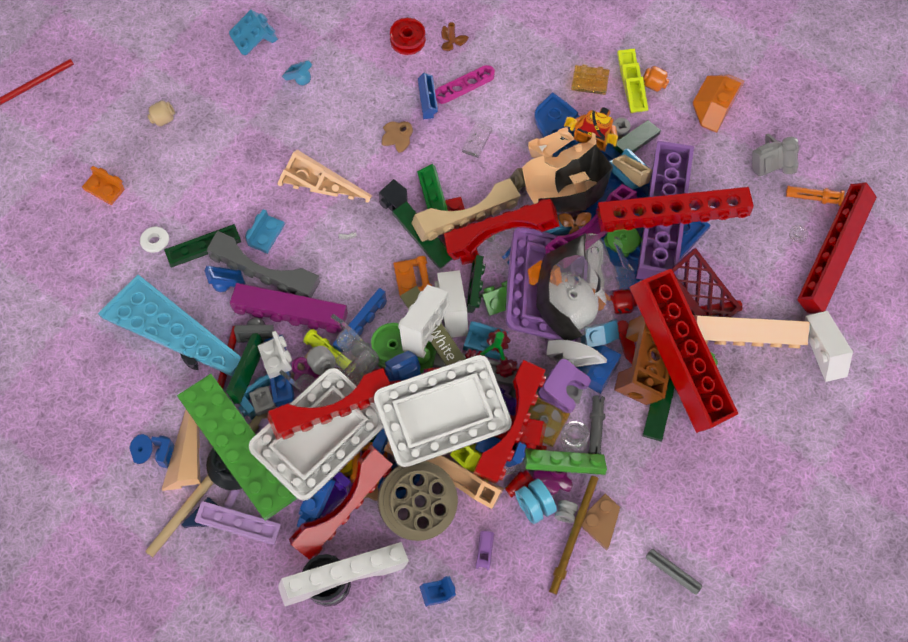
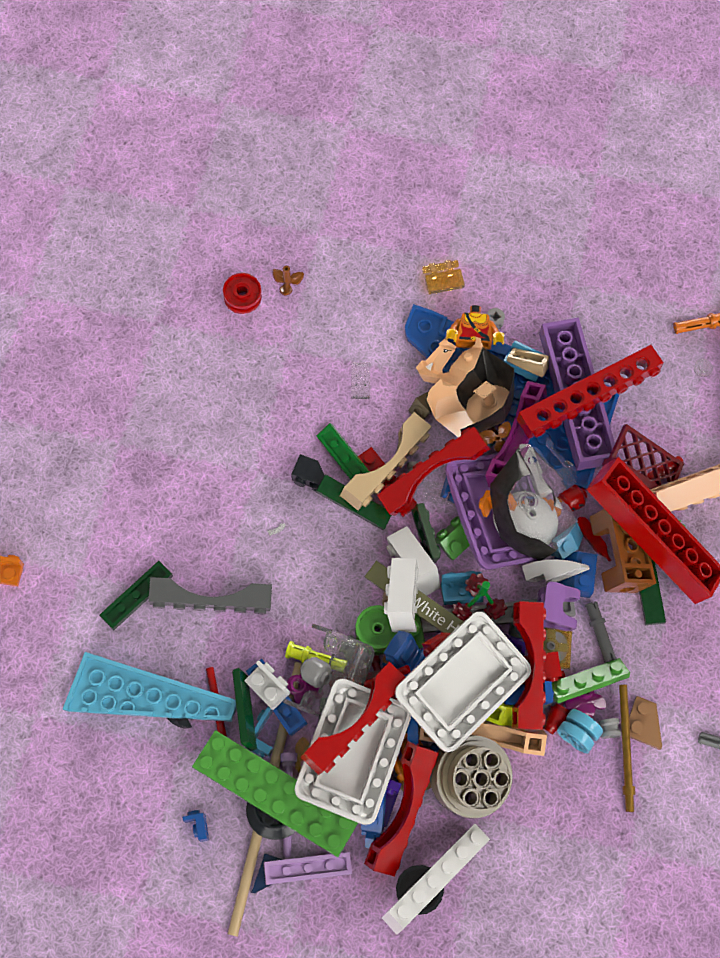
camera: 25 degrees left, 5 degrees up
(141, 448) = (174, 832): blue piece -> none
(154, 232) = (77, 599): white piece -> none
(161, 113) = (25, 468): tan head -> none
(185, 461) = (223, 826): light nougat wedge -> none
(223, 278) = (175, 622): blue tile -> none
(251, 31) = (78, 344): dark azure bracket -> none
(254, 325) = (229, 661): dark grey tile -> none
(262, 400) = (274, 734): light grey bracket -> none
(264, 232) = (193, 557): dark azure bracket -> none
(287, 307) = (254, 628): magenta brick -> none
(299, 73) = (149, 371): dark azure tile -> none
(309, 173) = (209, 477): light nougat wedge -> none
(366, 314) = (334, 607): blue plate -> none
(395, 136) = (278, 406): medium nougat plate -> none
(406, 277) = (356, 552): orange plate -> none
(427, 95) = (291, 351): blue piece -> none
(438, 591) = (527, 855): blue bracket -> none
(462, 82) = (319, 324): dark pink beam -> none
(485, 547) = (550, 793): medium lavender bar -> none
(574, 429) = (580, 658): clear wheel -> none
(629, 238) = (555, 435): bright green piece -> none
(632, 80) = (484, 264): neon yellow slope -> none
(637, 137) = (515, 323): tile -> none
(655, 78) = (505, 254): orange head -> none
(716, 99) = (572, 256): orange wedge -> none
(776, 156) = (653, 297): light grey piece -> none

